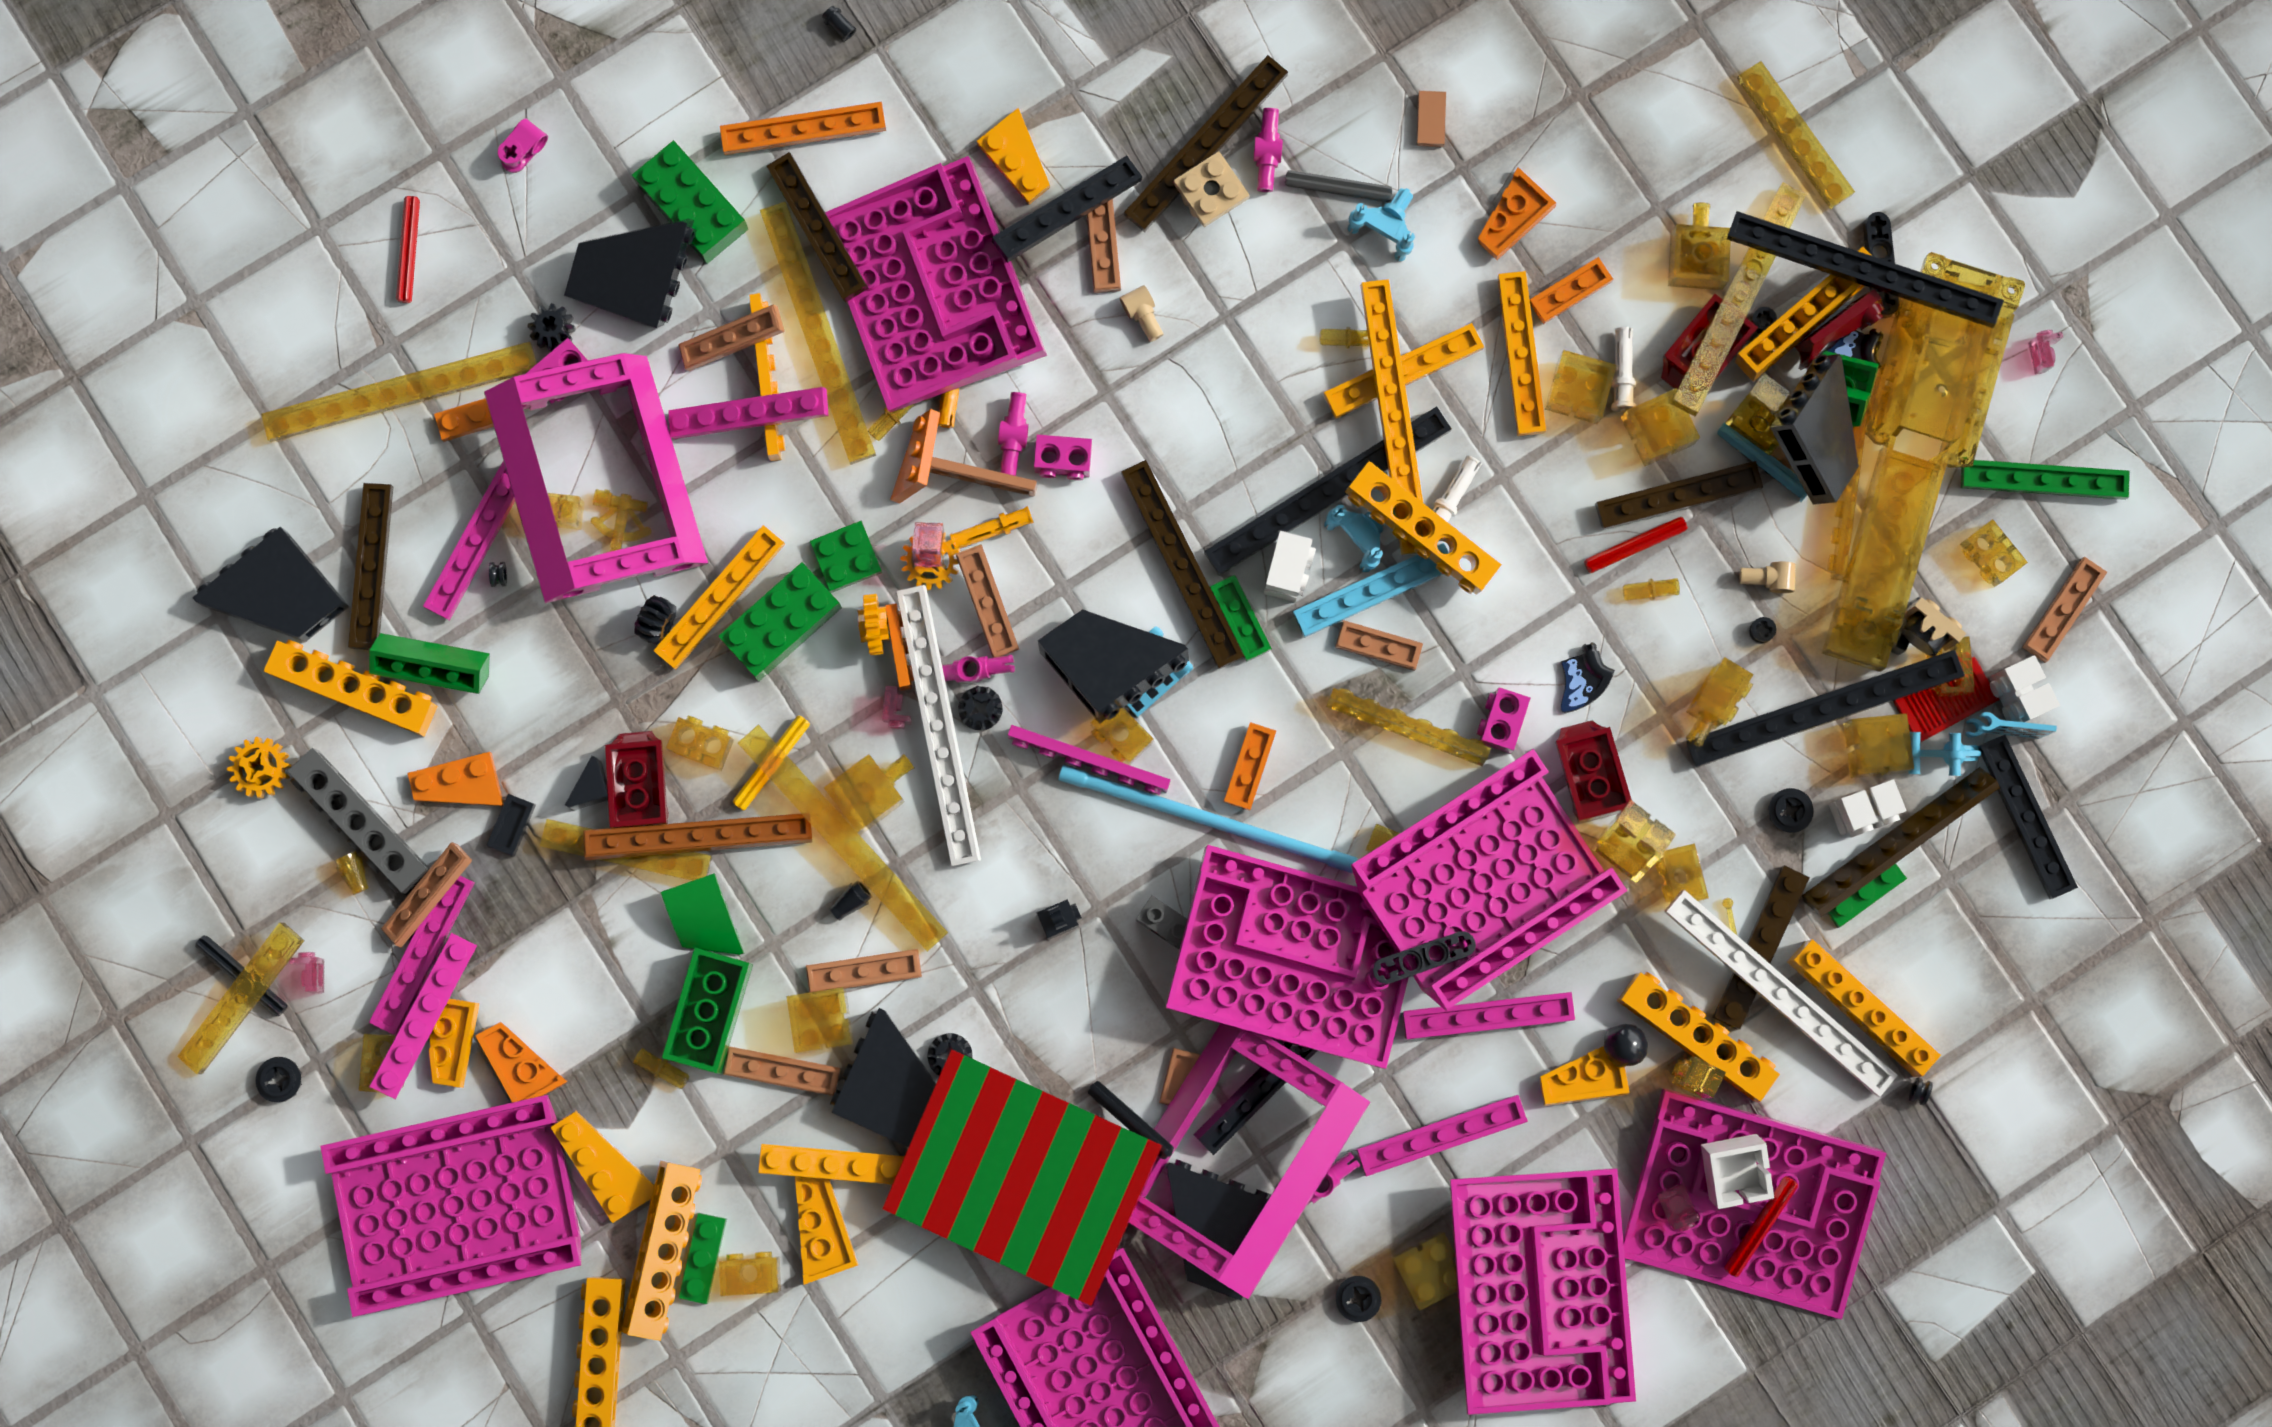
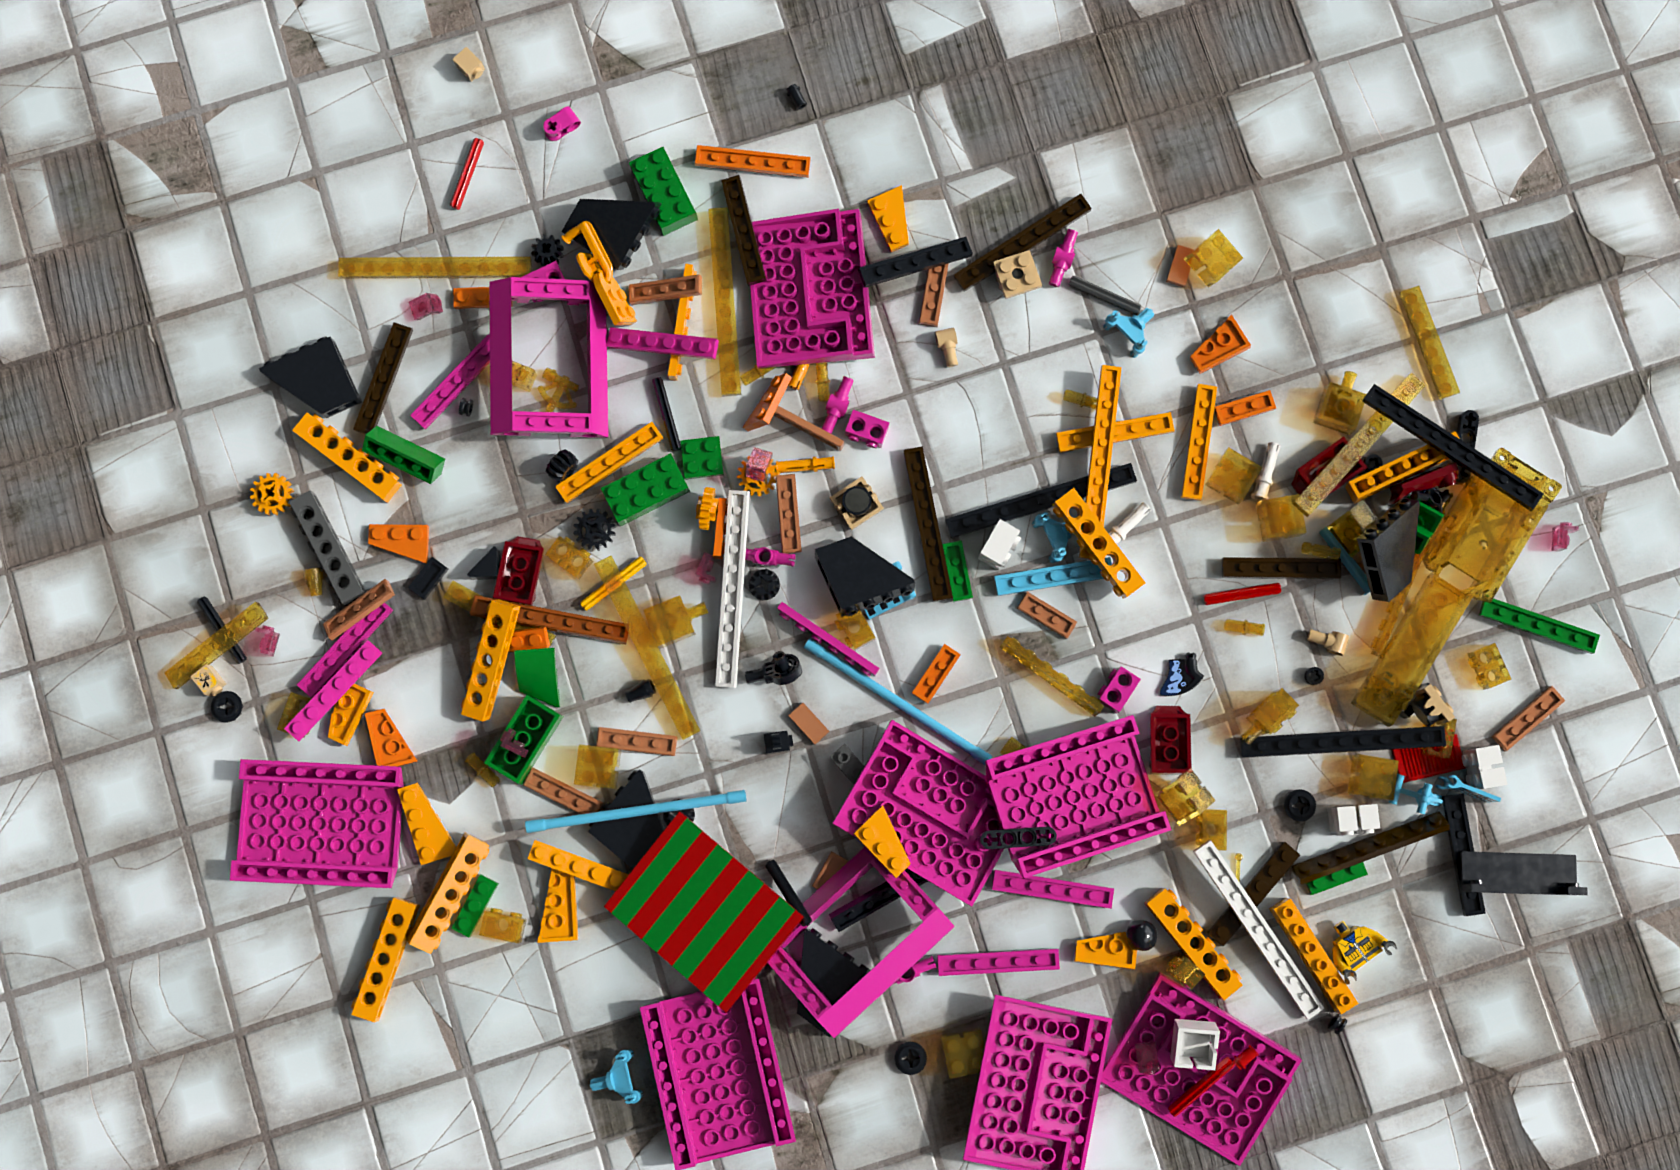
camera: 20 degrees right, 0 degrees up
(243, 1050) = (208, 680): none -> tan brick
(369, 96) = (469, 64): none -> tan brick
(401, 448) = (425, 305): none -> clear pink bracket
(640, 844) = (508, 614): none -> light orange brick
(648, 354) = (606, 286): none -> light orange plate
(662, 876) = (528, 639): none -> orange plate
(701, 1022) = (516, 747): none -> clear pink bracket
(729, 684) = (599, 523): none -> black gear
(768, 1119) = (544, 824): none -> medium azure piece
(780, 509) = (666, 414): none -> black axle
(984, 407) = (822, 381): none -> clear yellow axle
(1031, 821) = (777, 671): none -> black pin
(1077, 562) = (856, 503): none -> piece
(1094, 881) = (809, 723): none -> nougat tile
(1242, 1014) = (882, 841): none -> light orange wing
(1475, 91) = (1216, 254): none -> clear yellow piece
(1726, 457) = (1321, 550): none -> clear yellow axle
(1809, 1170) = (1245, 1057): none -> red pin
(1853, 346) = (1430, 497): none -> black bar
(1918, 982) = (1356, 947): none -> yellow torso
(2108, 821) = (1519, 873): none -> black bracket

